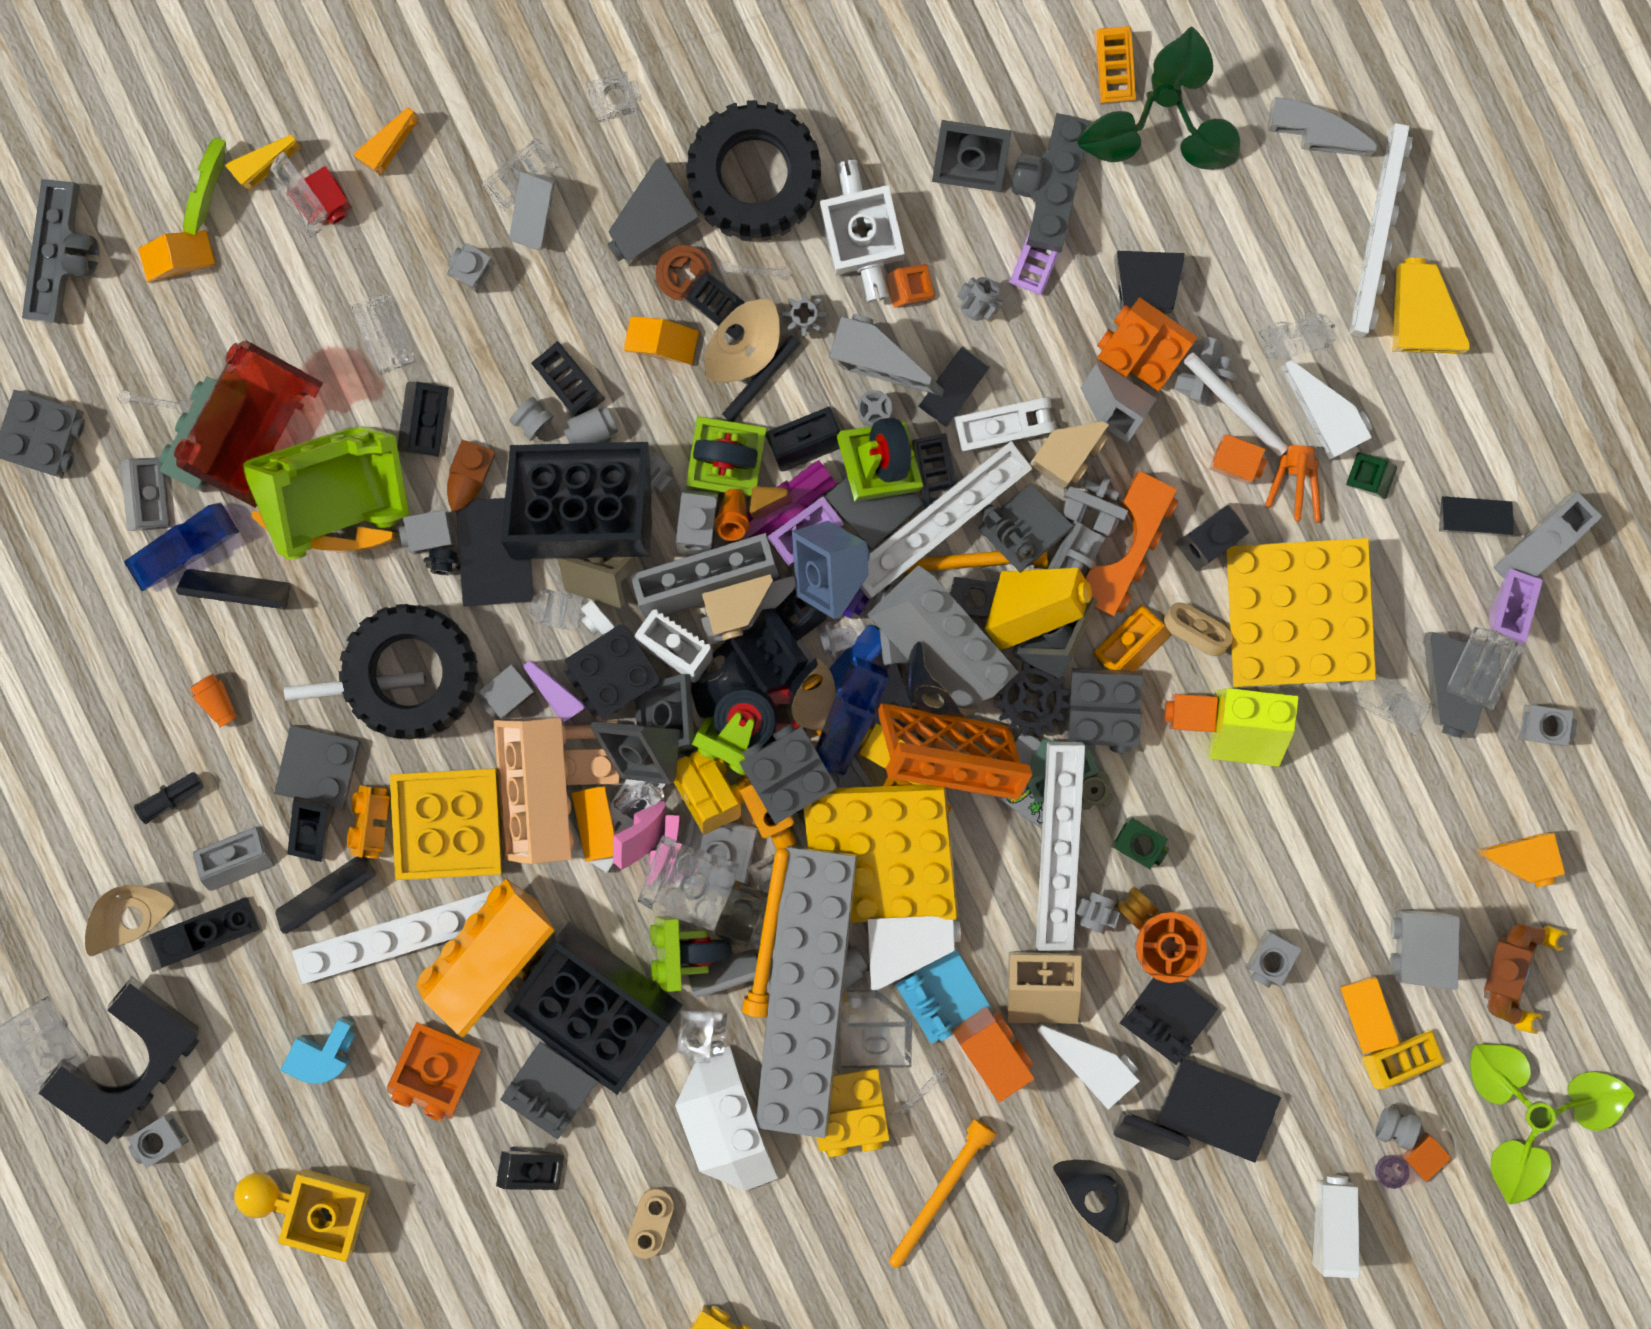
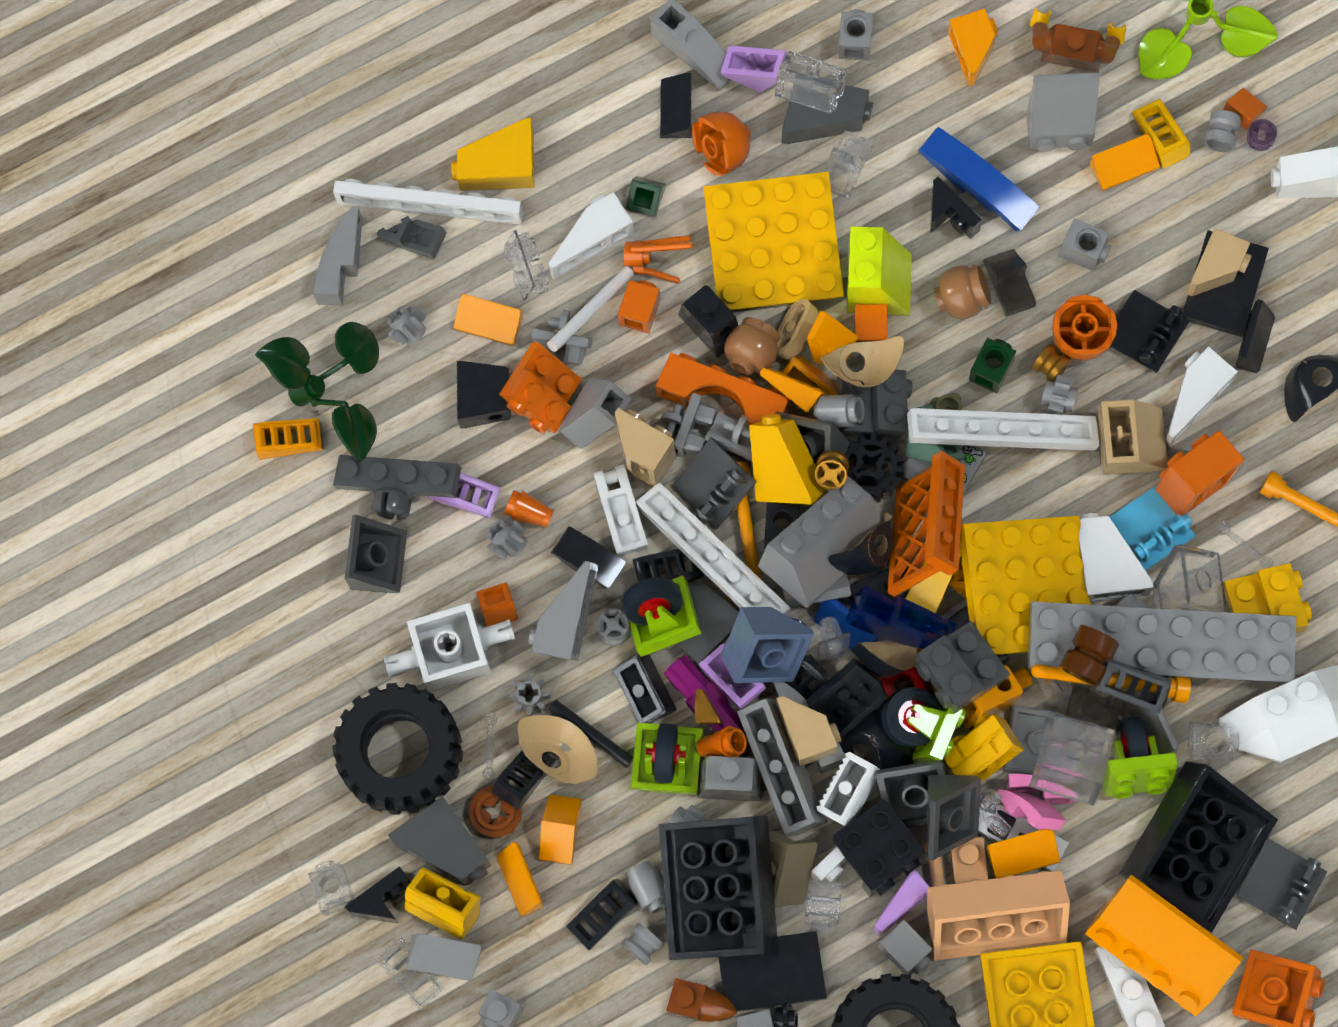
camera: 85 degrees left, 15 degrees down
(586, 211) = (442, 903): none -> yellow brick
(592, 140) = (371, 902): none -> black slope
(609, 295) = (519, 879): none -> light orange slope
(743, 961) = (1129, 696): none -> black slope
(788, 909) = (1089, 655): none -> reddish brown wheel
(1012, 324) = (527, 509): none -> orange cone
(1022, 654) = (831, 477): none -> pearl gold wheel
(1090, 668) = (840, 410): none -> light grey brick
(1123, 625) = (798, 391): none -> light orange slope
(1145, 719) = (879, 357): none -> tan piece
(1175, 667) = (827, 336): none -> light orange slope
(1177, 579) = (751, 346): none -> medium nougat piece
(1225, 818) = (963, 292): none -> medium nougat piece
(1233, 200) = (406, 325): none -> light grey gear
(1235, 291) = (488, 319): none -> light orange slope
(1237, 1105) = (1219, 262): none -> tan slope
(1238, 872) = (1010, 282): none -> clear smoke slope
(1333, 809) = (947, 205): none -> black slope
(1341, 215) = (415, 237): none -> dark grey slope
(1360, 848) = (979, 178): none -> blue slope
(1426, 566) = (722, 141): none -> orange cylinder

